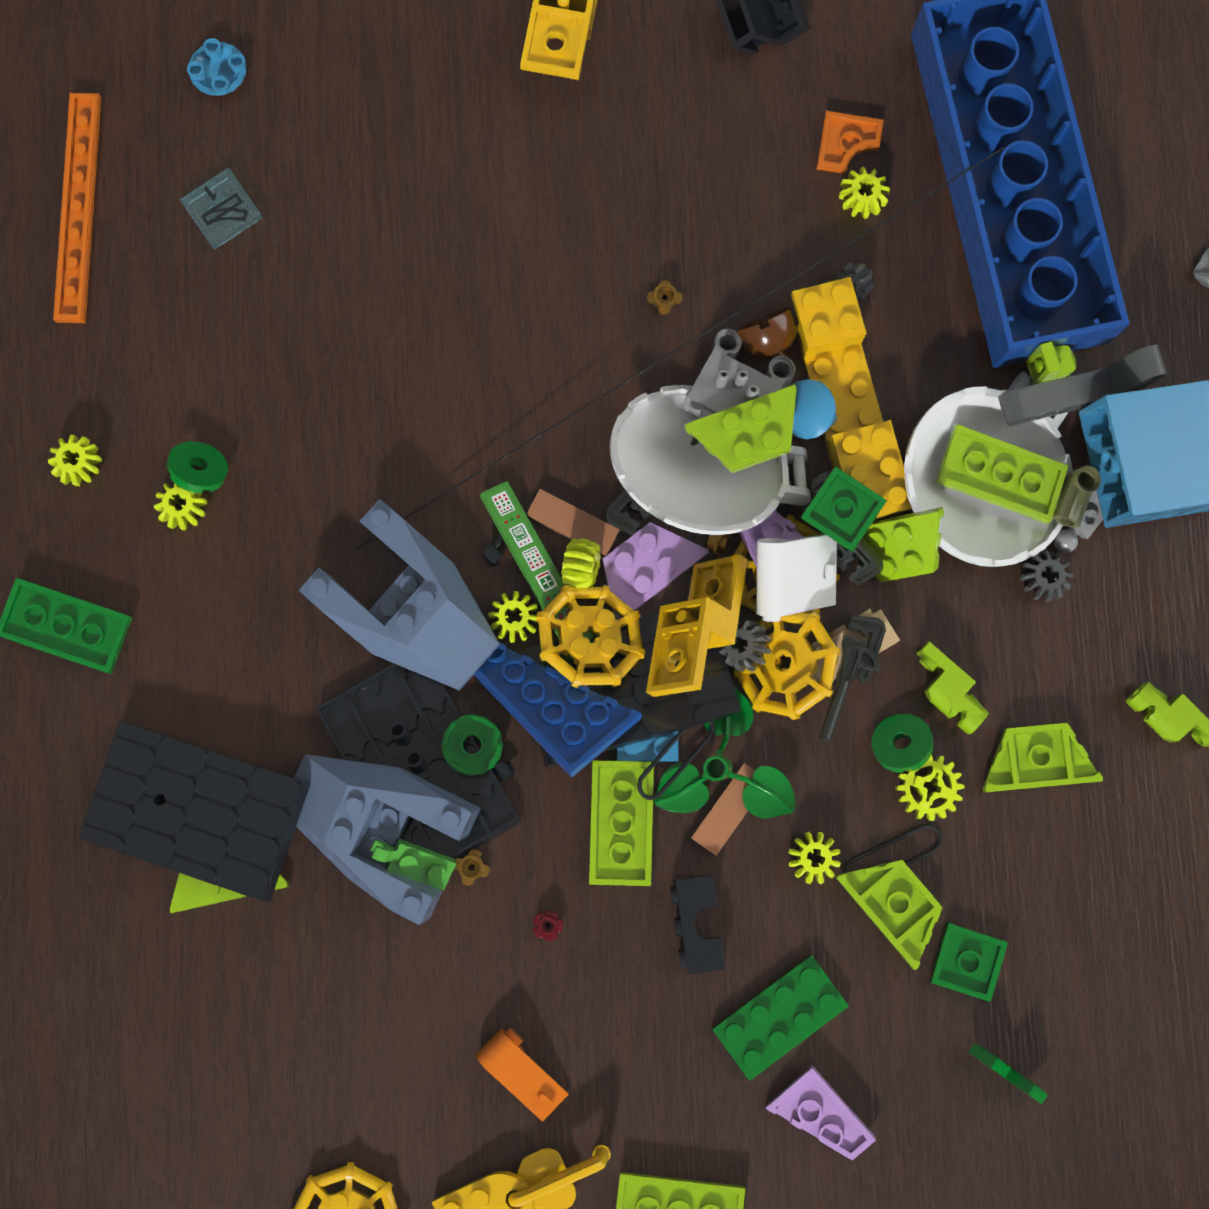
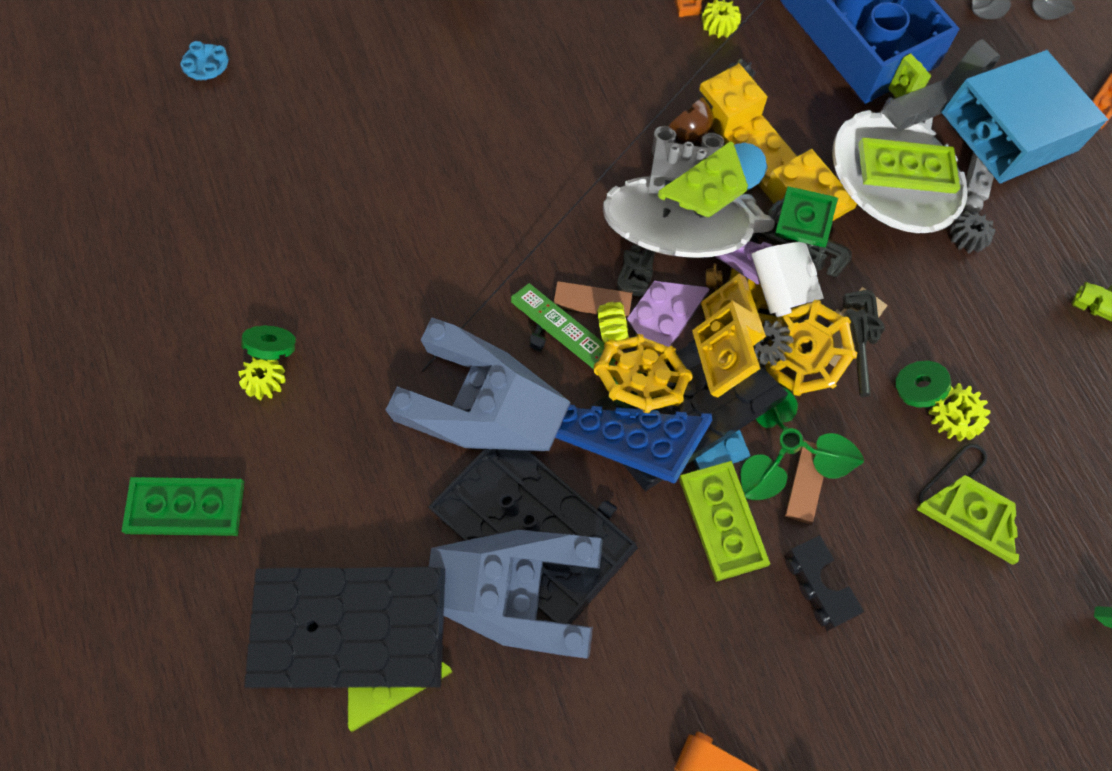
camera: 20 degrees left, 15 degrees down
(77, 208) = (116, 187): orange tile -> none
(86, 460) = (170, 369): neon yellow gear -> none
(221, 208) = (234, 154): clear light blue tile -> none
(415, 862) = (561, 608): bright green plate -> none
(454, 740) = (574, 509): green tile -> none
(480, 869) = (617, 600): pearl gold plate -> none
(516, 627) = (569, 373): neon yellow gear -> none
(547, 917) = (694, 636): dark red plate -> none
(664, 288) = (603, 118): pearl gold plate -> none
(682, 767) = (755, 458): black piece -> none
(780, 1017) = (923, 644): green plate -> none
(820, 1111) = (995, 714): lavender wing -> none
(823, 851) = (889, 503): neon yellow gear -> none
(907, 544) = (864, 231): lime wing -> none
(950, 689) = (940, 332): lime plate -> none
(968, 962) = (1054, 544): green tile -> none
(1039, 759) = (1031, 365): lime wing -> none
(1075, 496) = (969, 165): olive piece -> none

